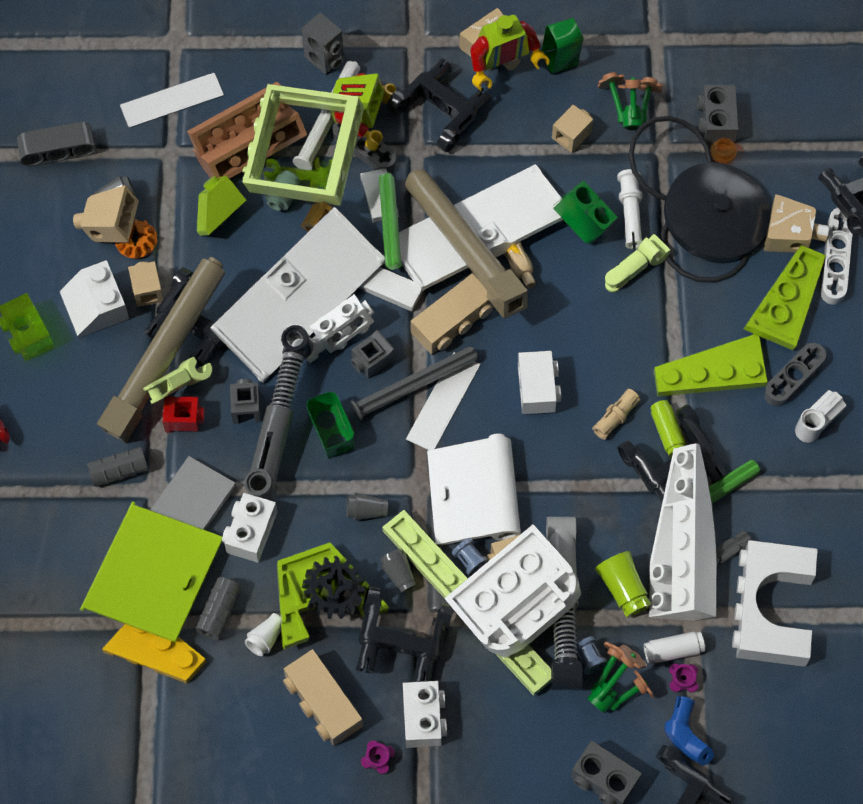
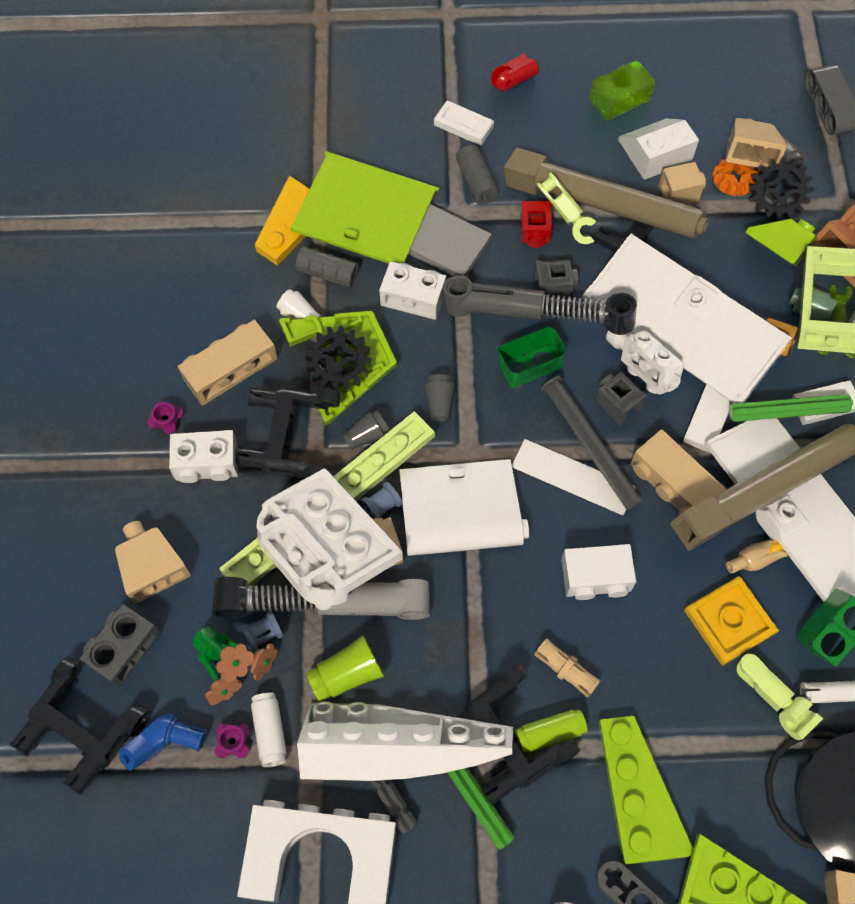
camera: 90 degrees right, 0 degrees up
(46, 479) = (464, 123): none -> white tile
(155, 207) = (782, 176): none -> black gear
(527, 757) = (148, 562): none -> tan torso
(573, 290) = (731, 620): none -> yellow tile

